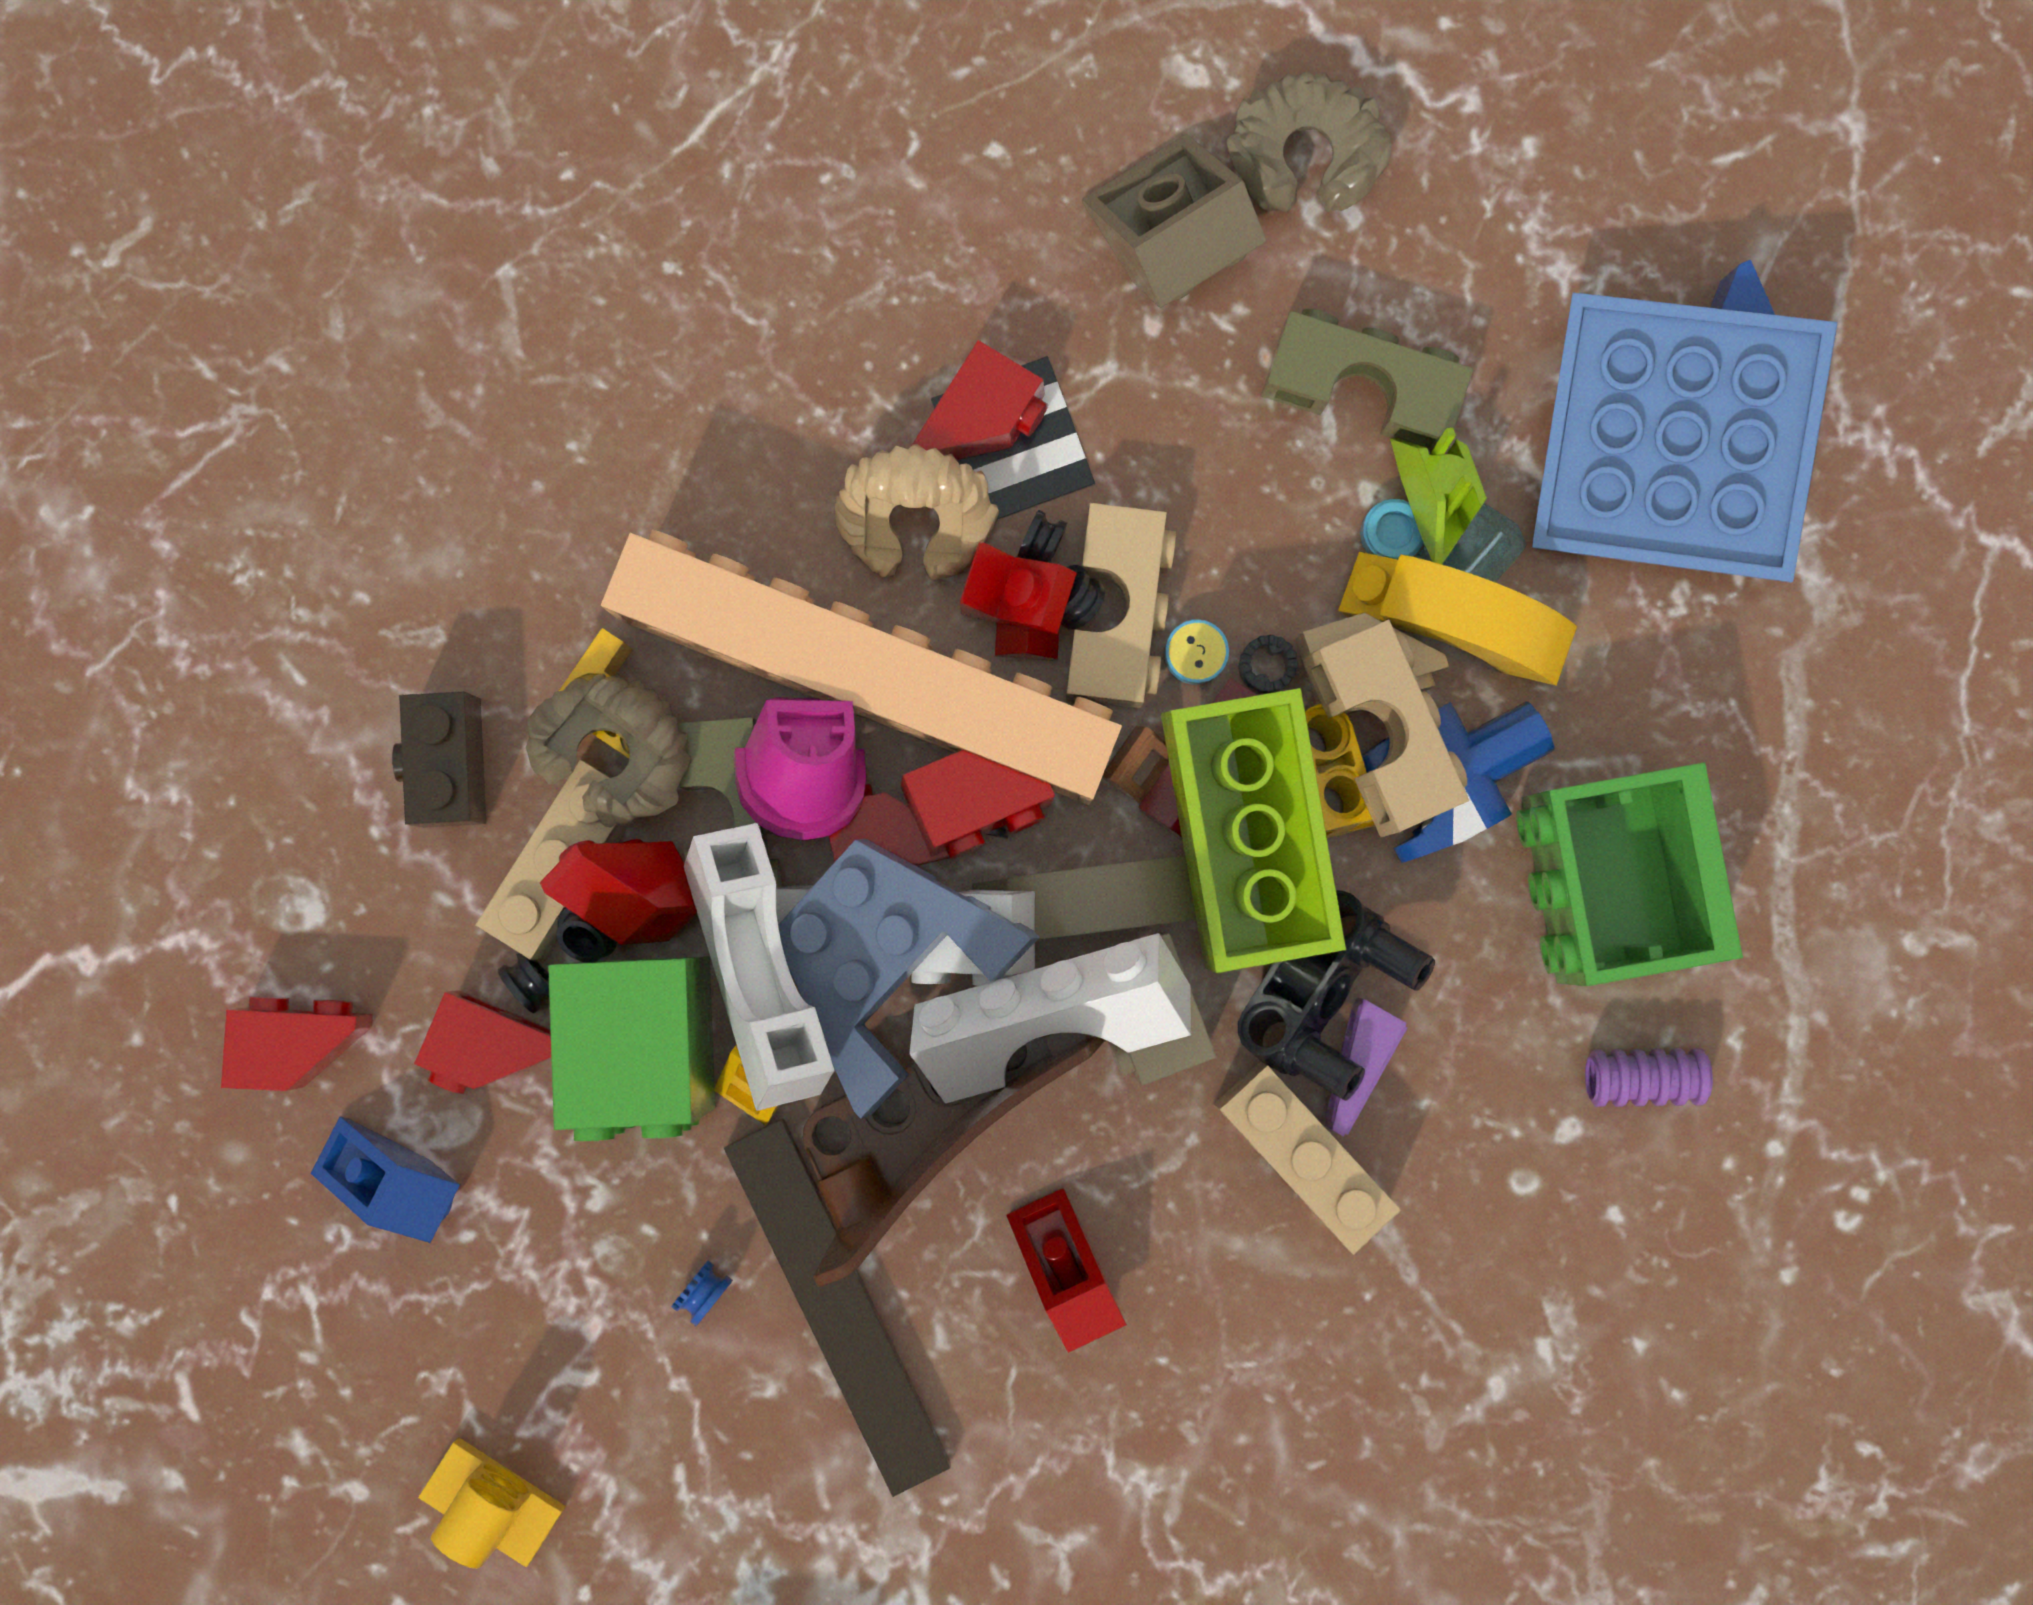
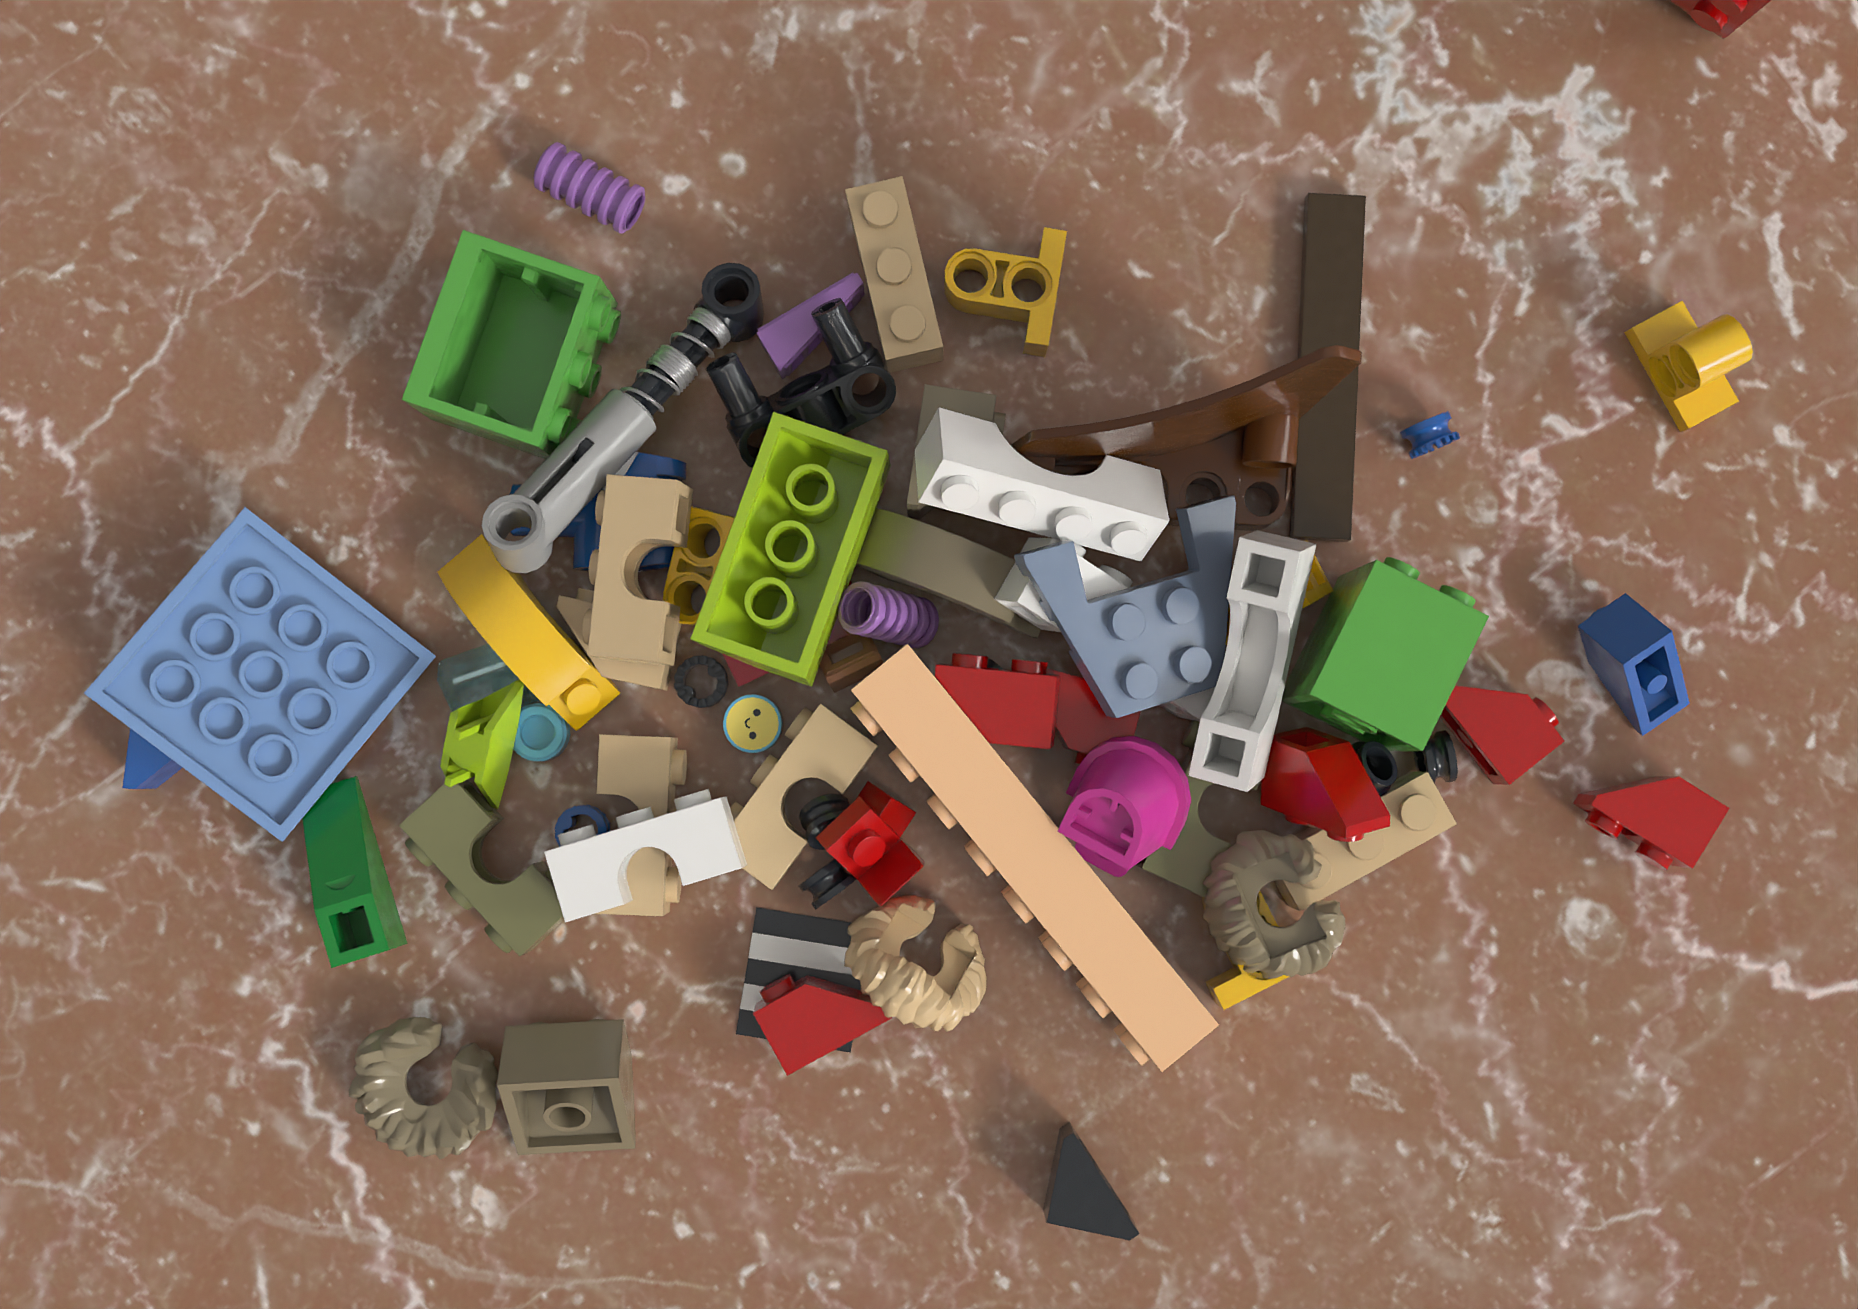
camera: 145 degrees left, 0 degrees up
(441, 759) = (1411, 975): dark brown brick -> none
(640, 386) = (1081, 1194): none -> black slope
(1065, 1270) = (1133, 293): red slope -> none
(1126, 822) = (887, 615): none -> medium lavender piece
(1203, 1216) = (1001, 273): none -> yellow tile
(1269, 426) = (592, 869): none -> white arch
(1269, 546) = (647, 774): none -> tan arch
(1280, 459) = (567, 820): none -> blue bush
(1485, 861) = (619, 424): none -> piece
(1490, 296) = (349, 877): none -> green slope

